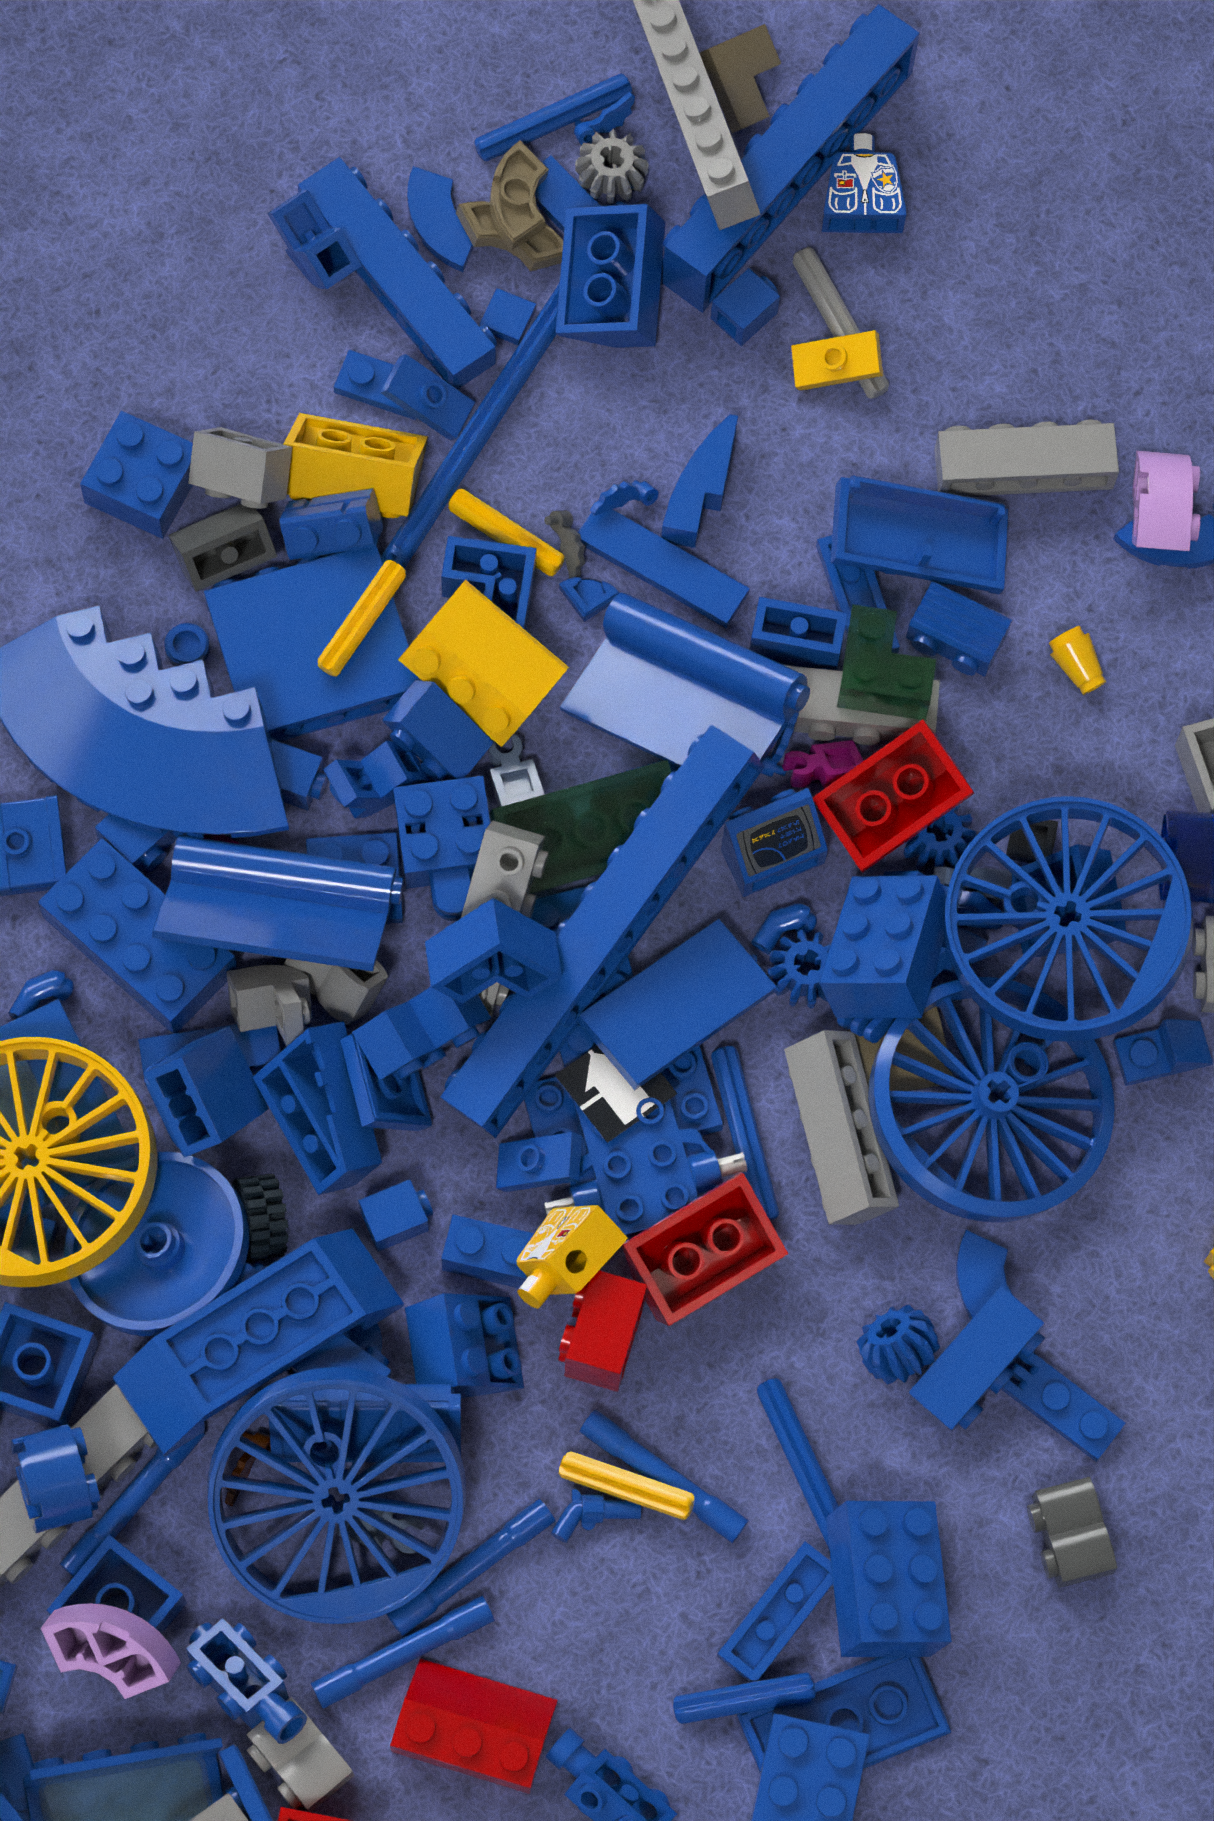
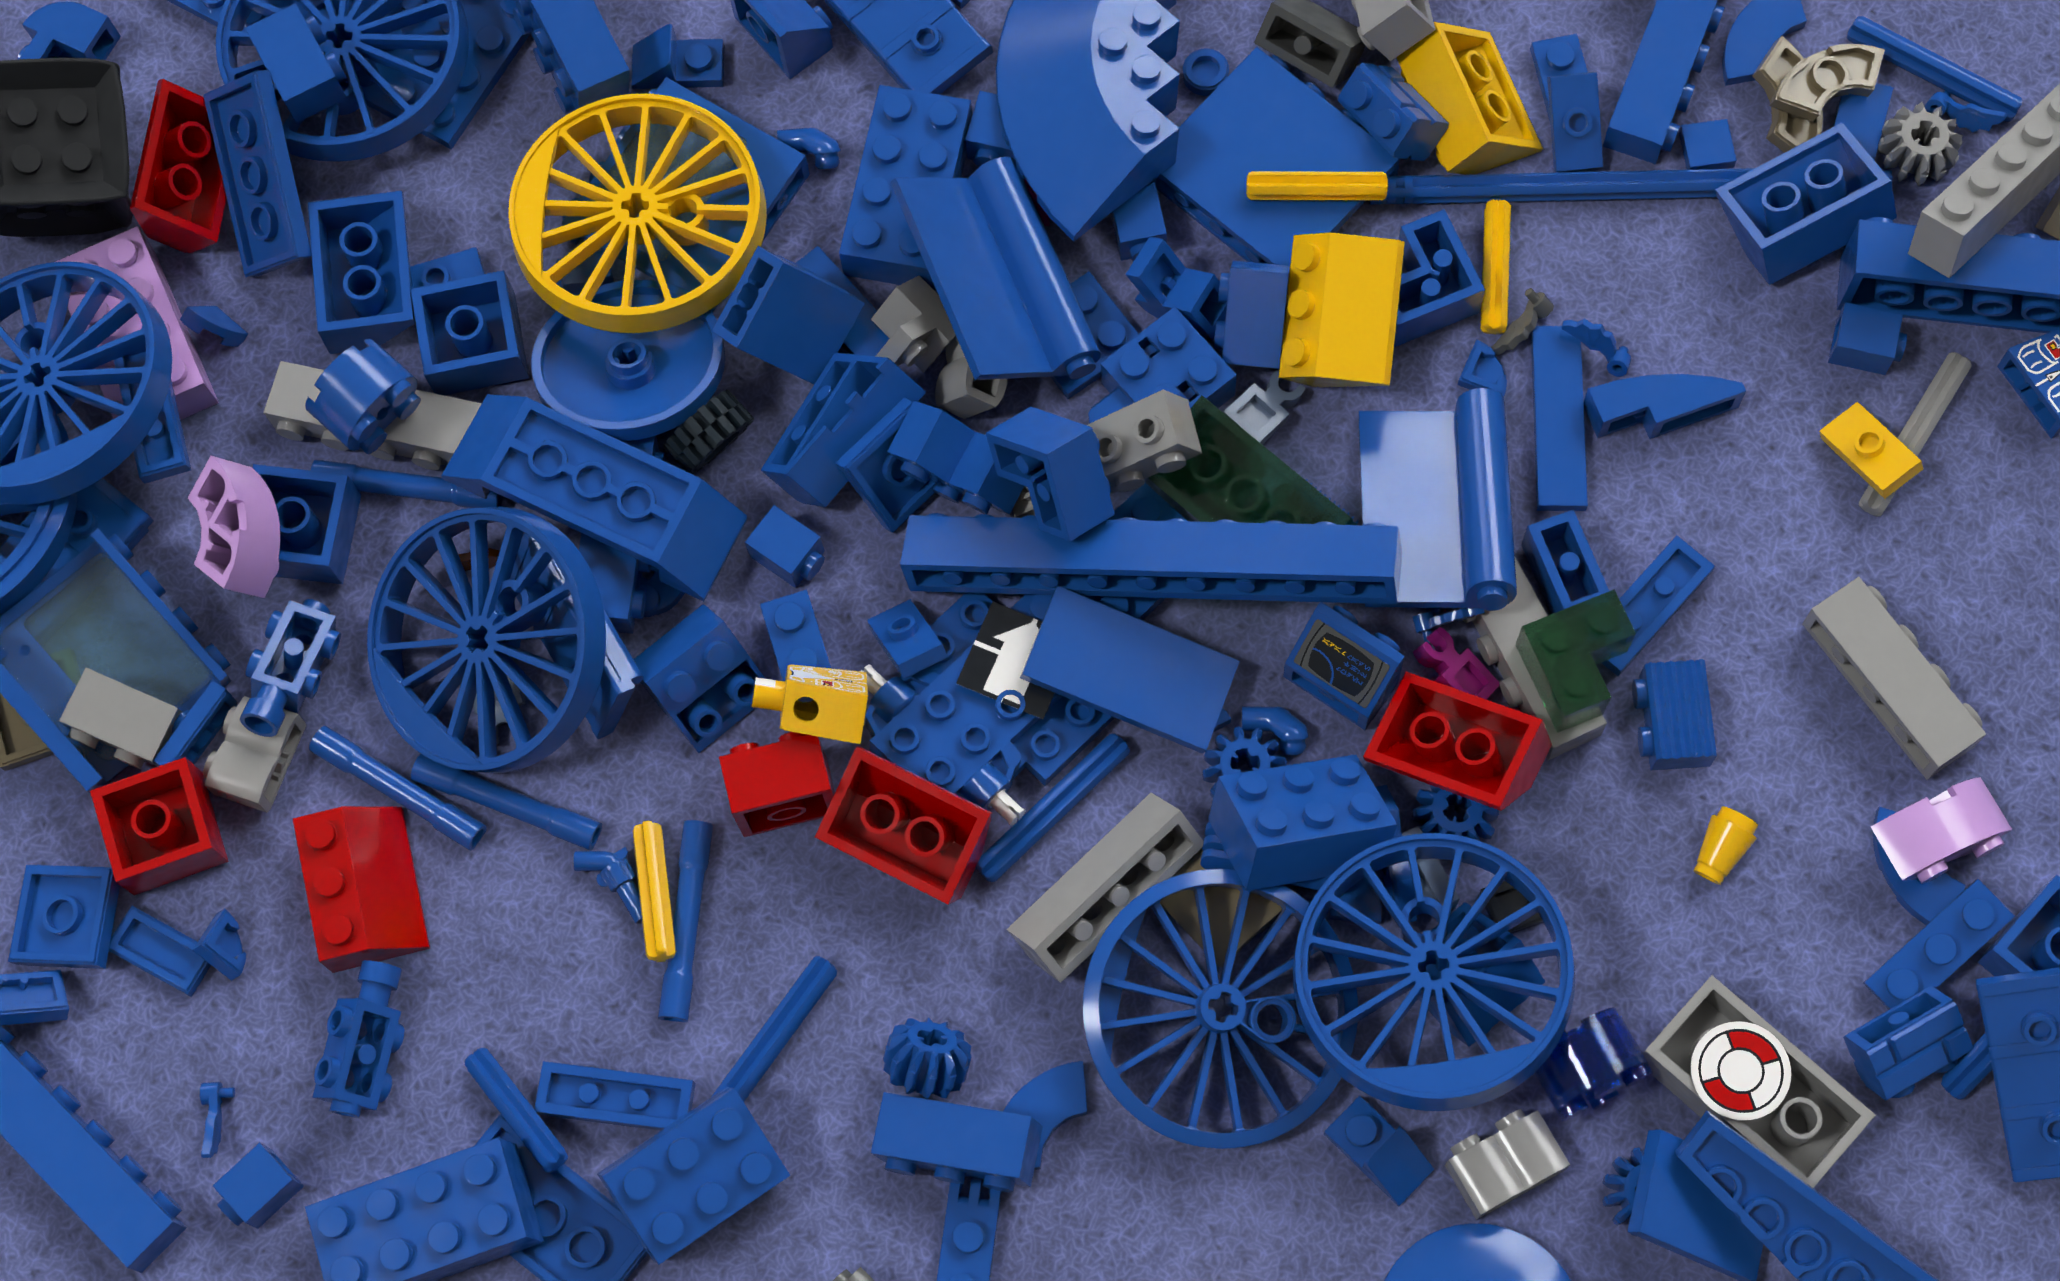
camera: 70 degrees right, 0 degrees up
(919, 533) = (1746, 624): blue container -> none

